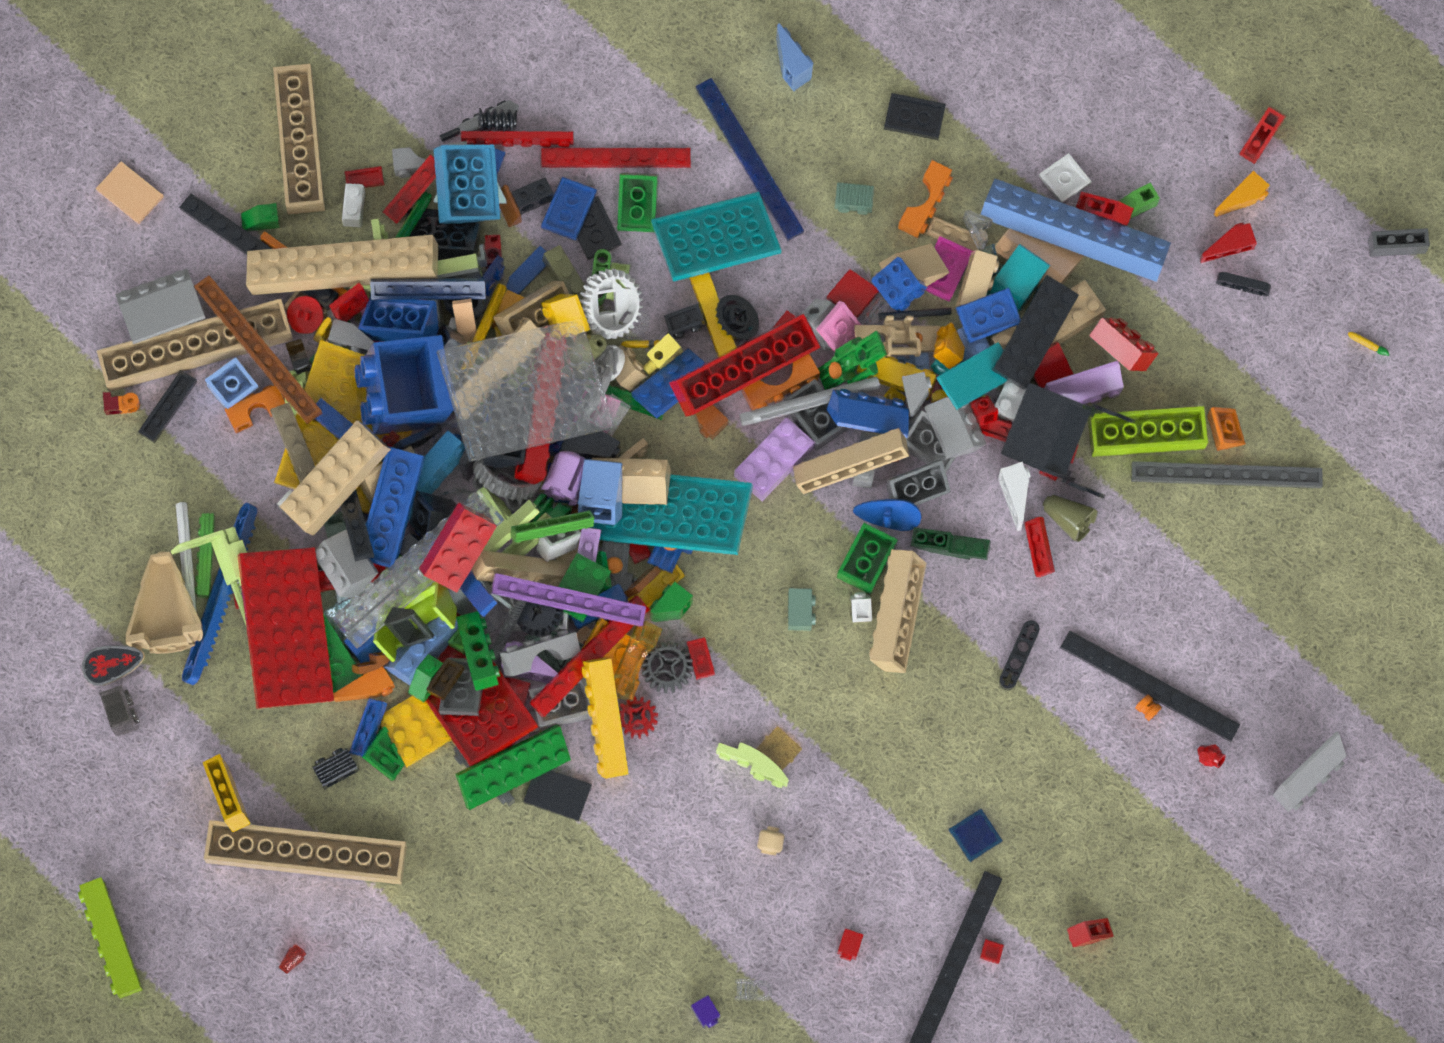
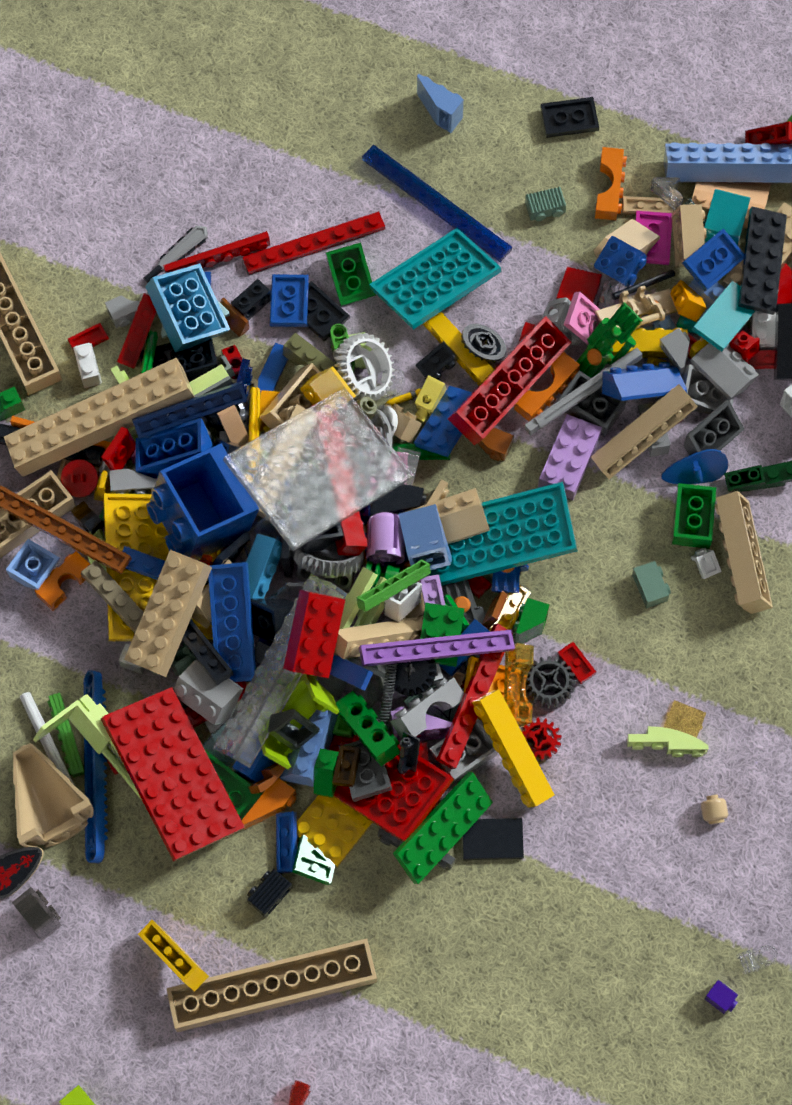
camera: 15 degrees left, 5 degrees down
(497, 120) = (192, 244): black piece -> none
(504, 688) = (408, 753): none -> black hinge
(1065, 178) = (725, 124): white plate -> none

